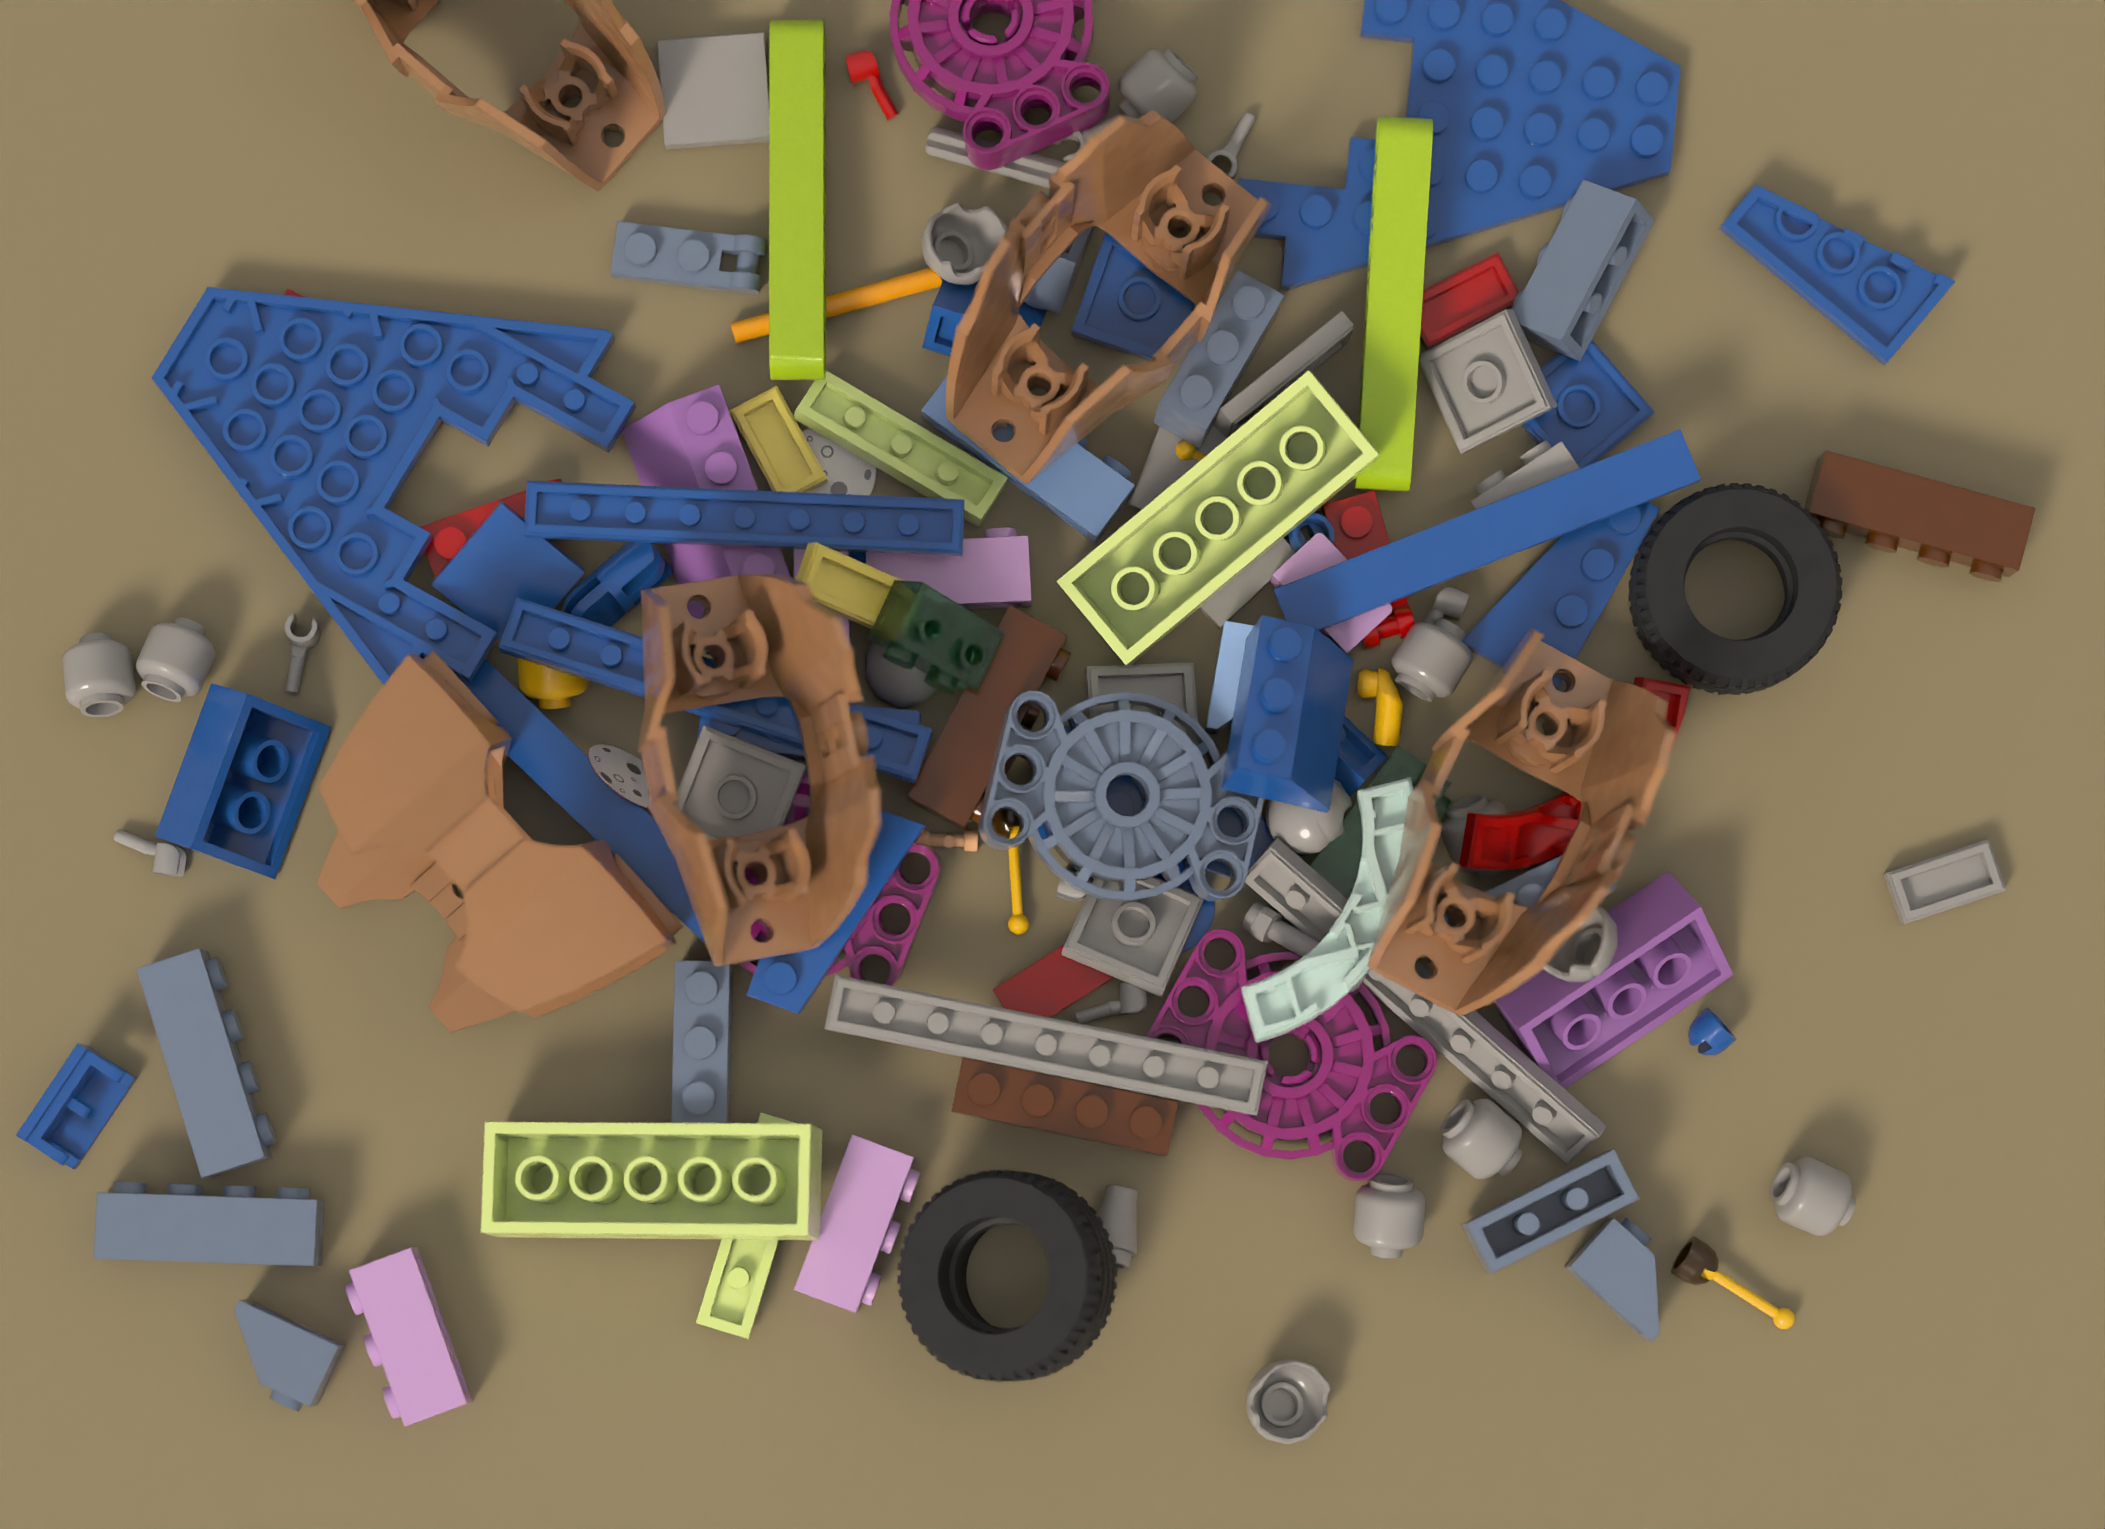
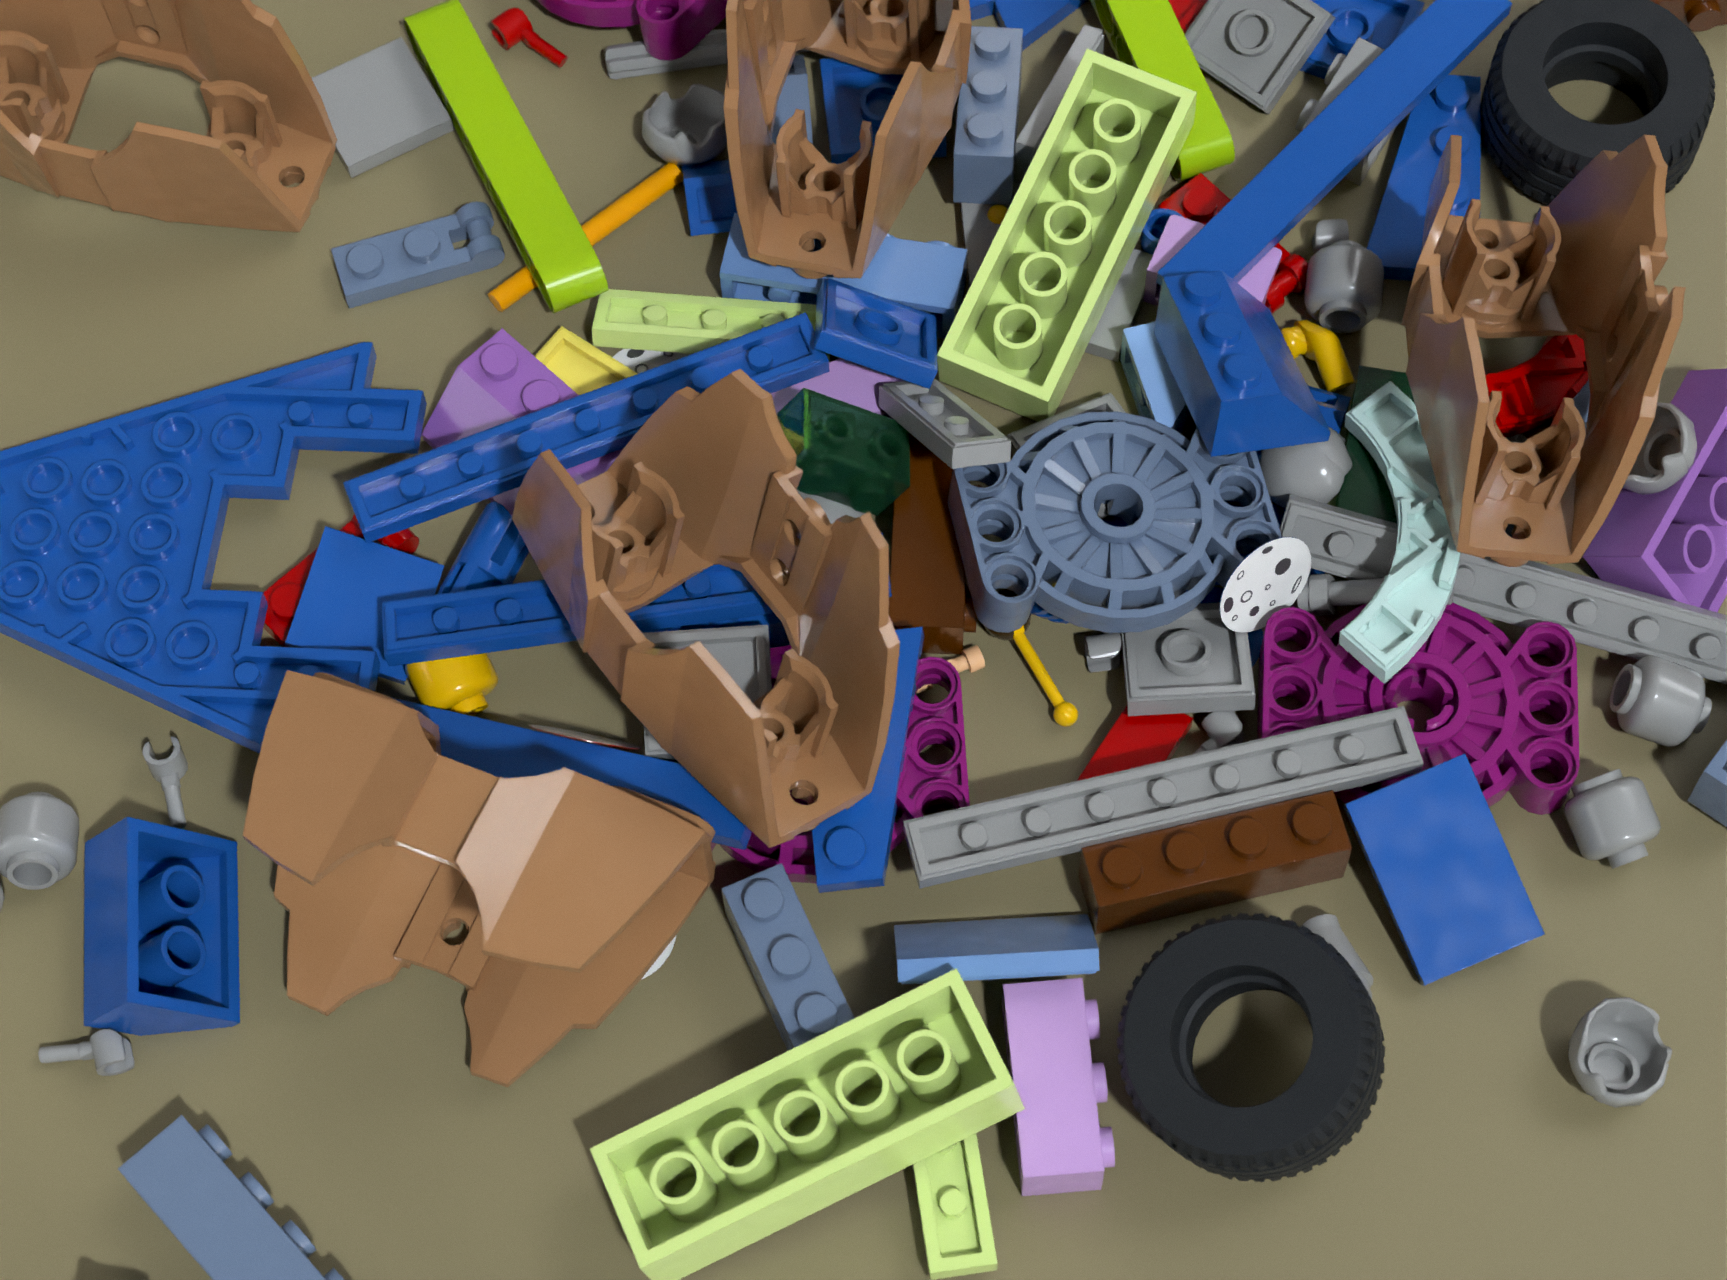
camera: 20 degrees left, 20 degrees down
(860, 1101) = (996, 948): none -> medium blue tile
(1016, 538) = (876, 333): none -> blue tile
(1024, 658) = (944, 424): none -> light grey tile
(1214, 909) = (1265, 583): none -> white sticker
(1233, 1198) = (1443, 869): none -> blue tile

